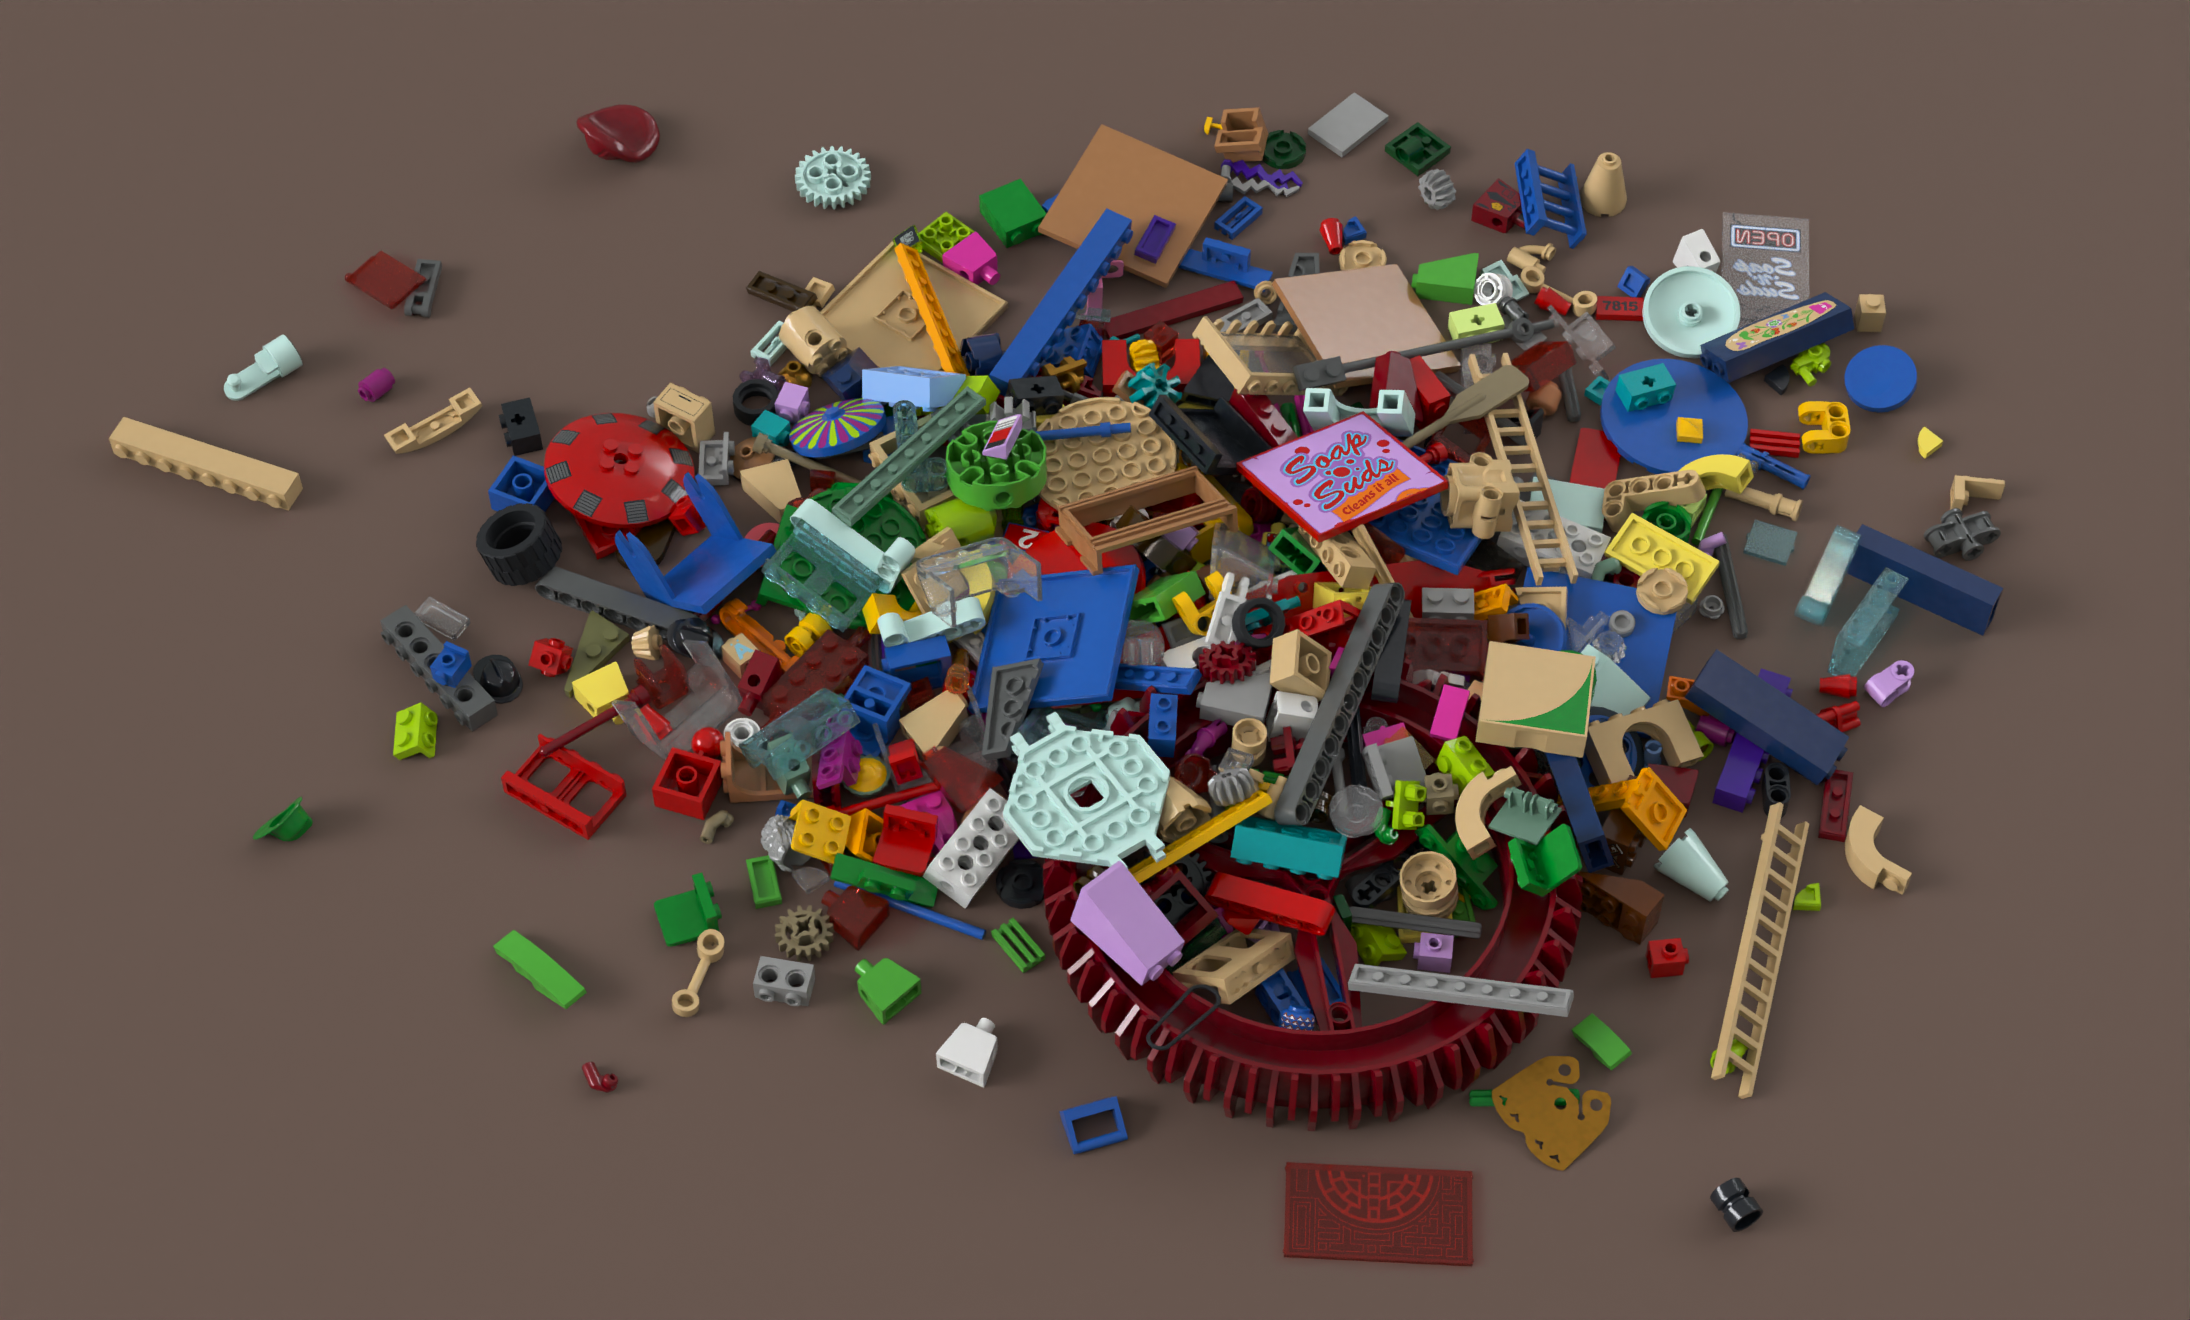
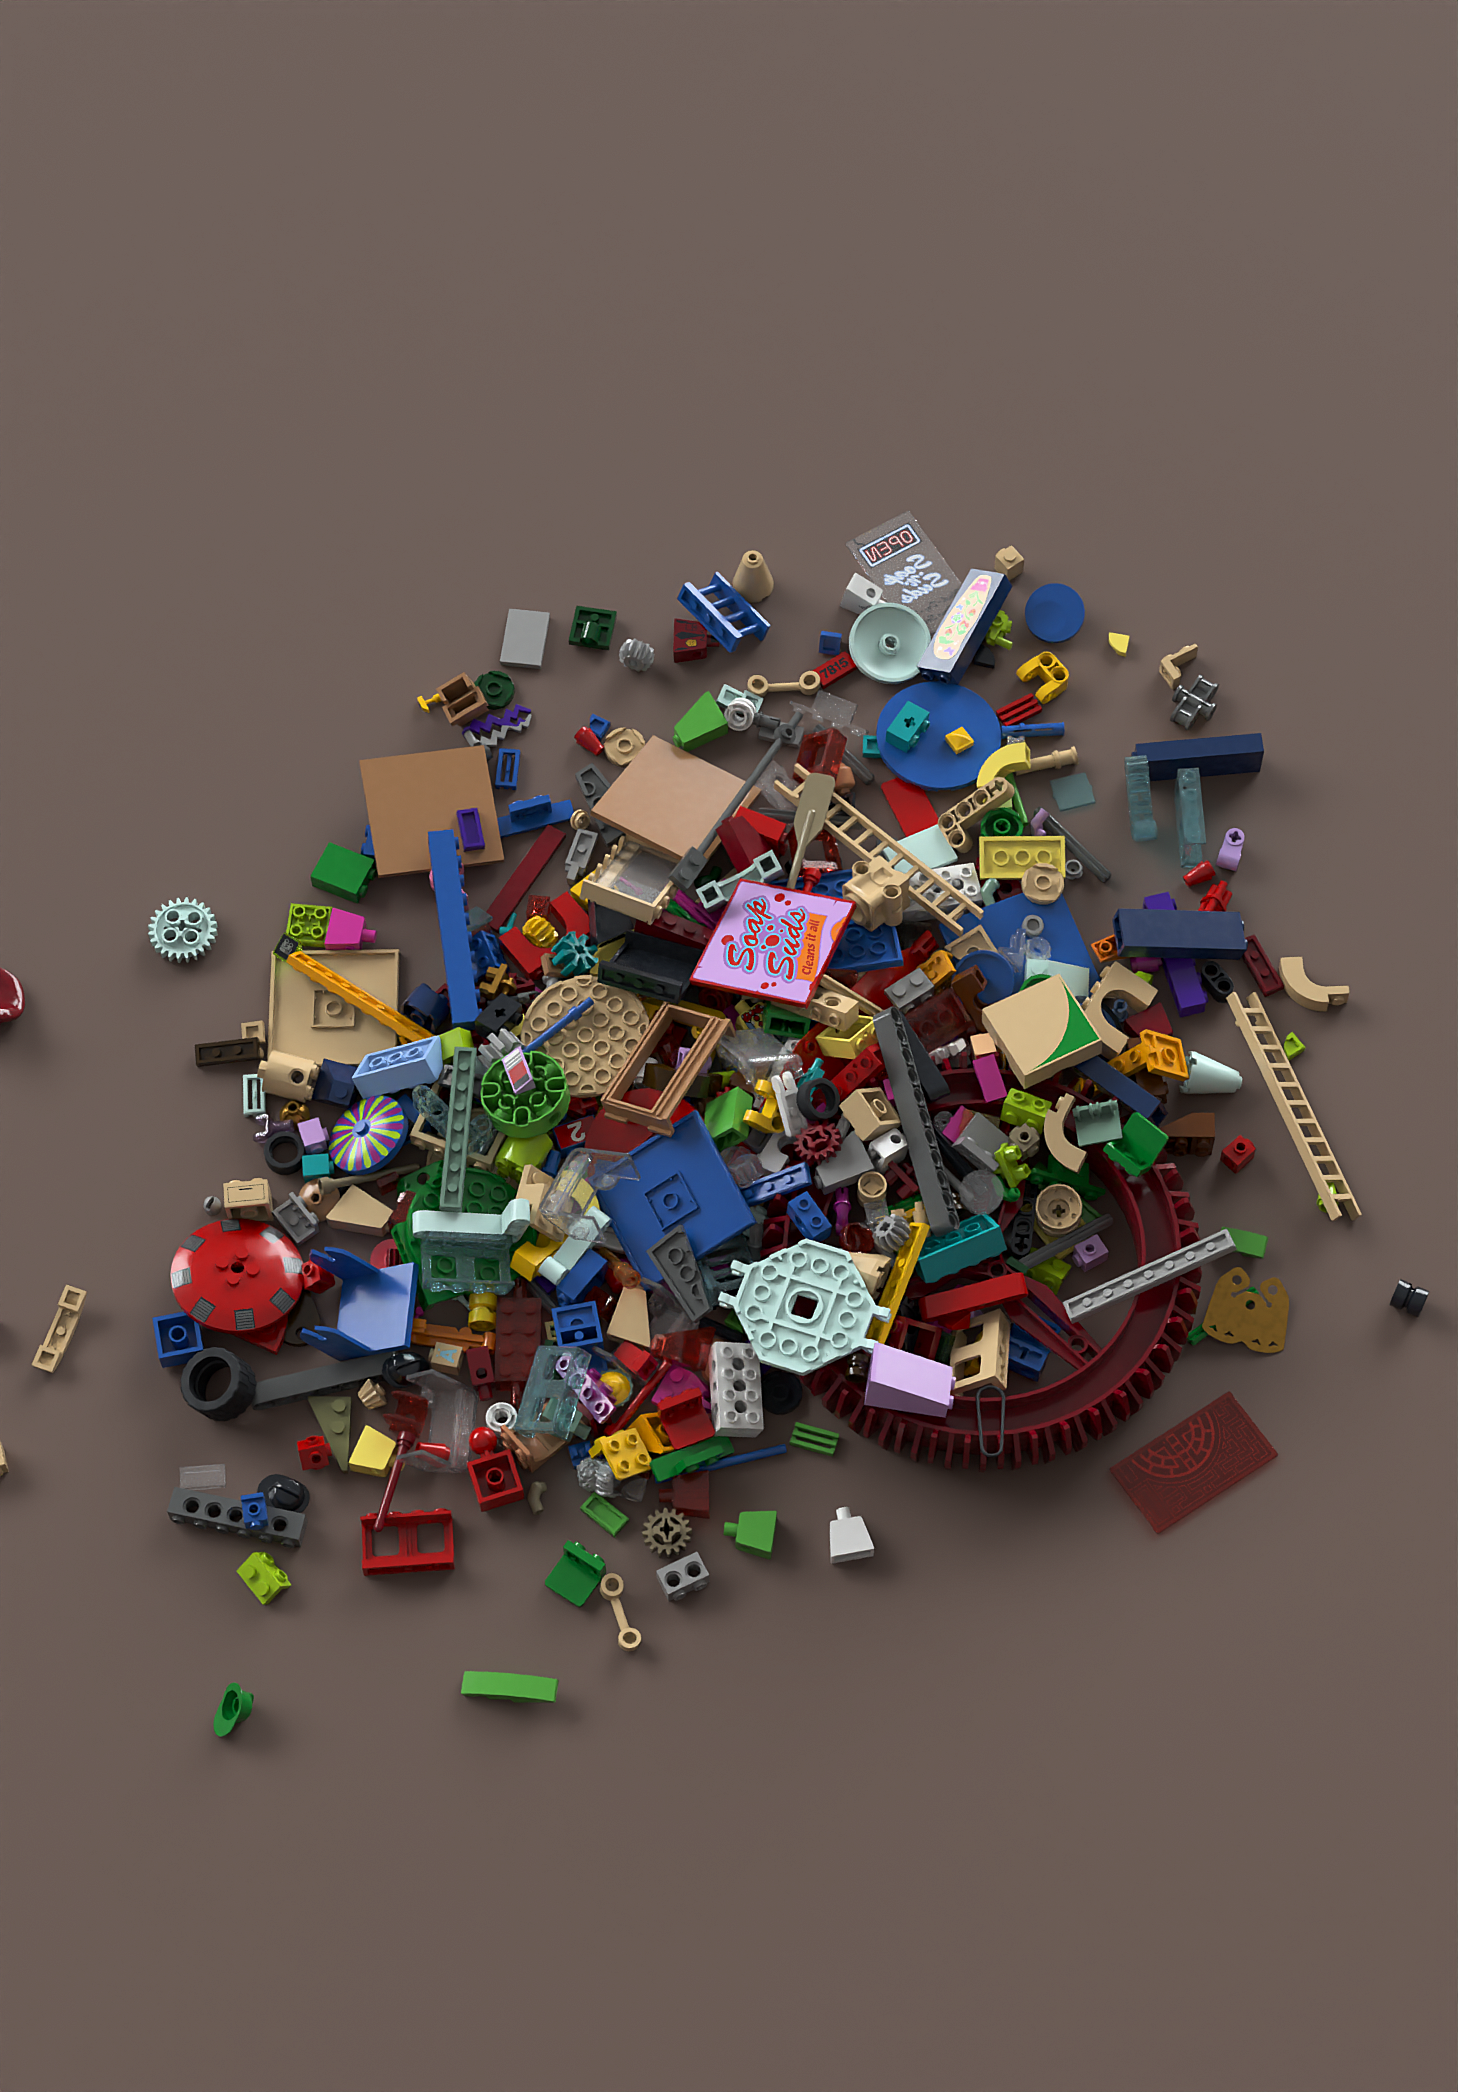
camera: 35 degrees left, 10 degrees up
(521, 426) = (121, 1279): black brick -> none
(599, 1082) = (618, 1736): dark red arm -> none
(1110, 1103) = (959, 1522): blue tile -> none
(1296, 1018) = (1051, 1369): blue head -> none
(1475, 321) = (748, 750): yellowish green brick -> none
(1523, 257) = (737, 673): tan plant -> none
(1549, 297) = (783, 695): red cone -> none

